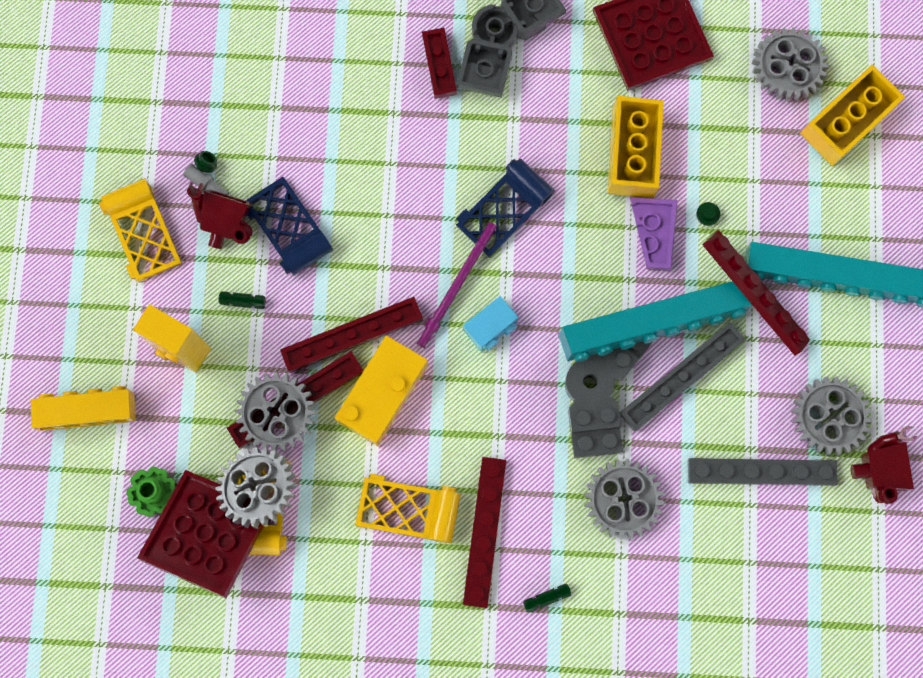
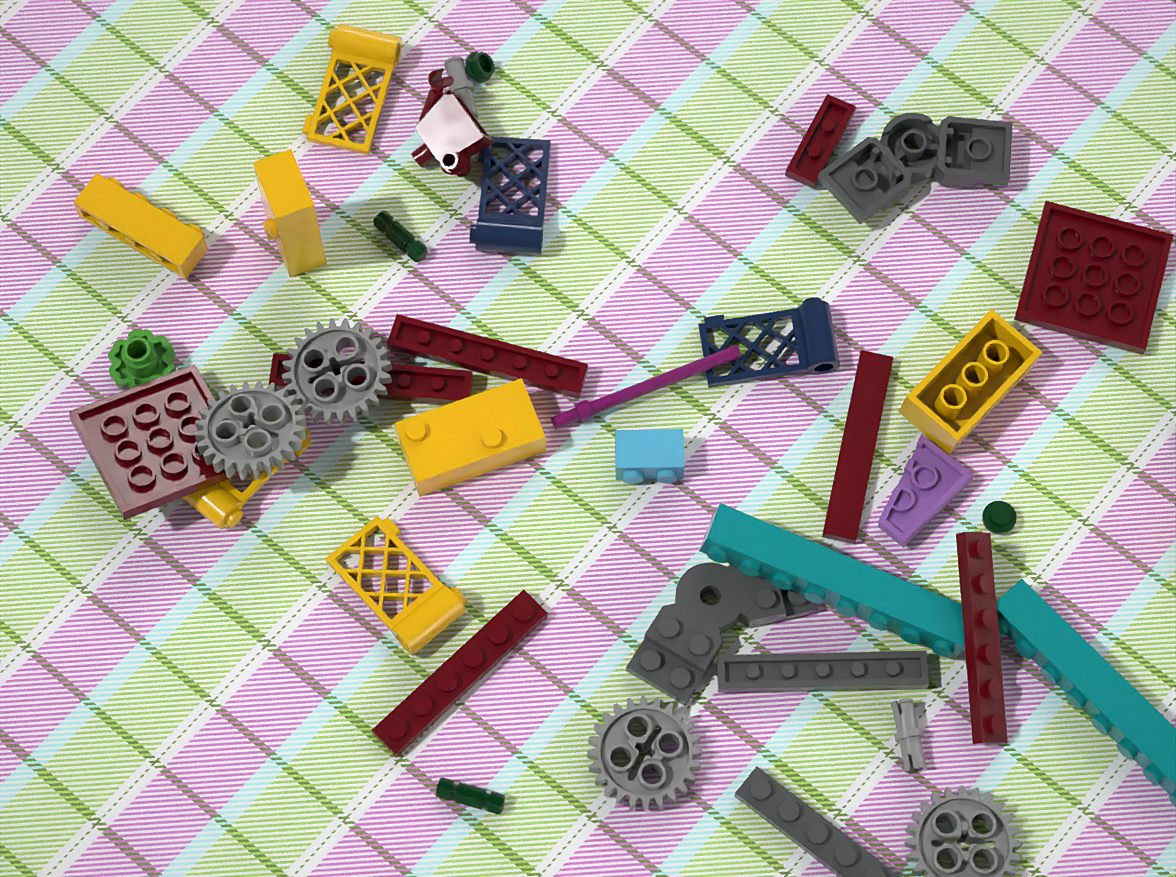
camera: 35 degrees right, 10 degrees down
(600, 230) = (857, 447): none -> dark red tile
(756, 376) = (908, 735): none -> light grey pin

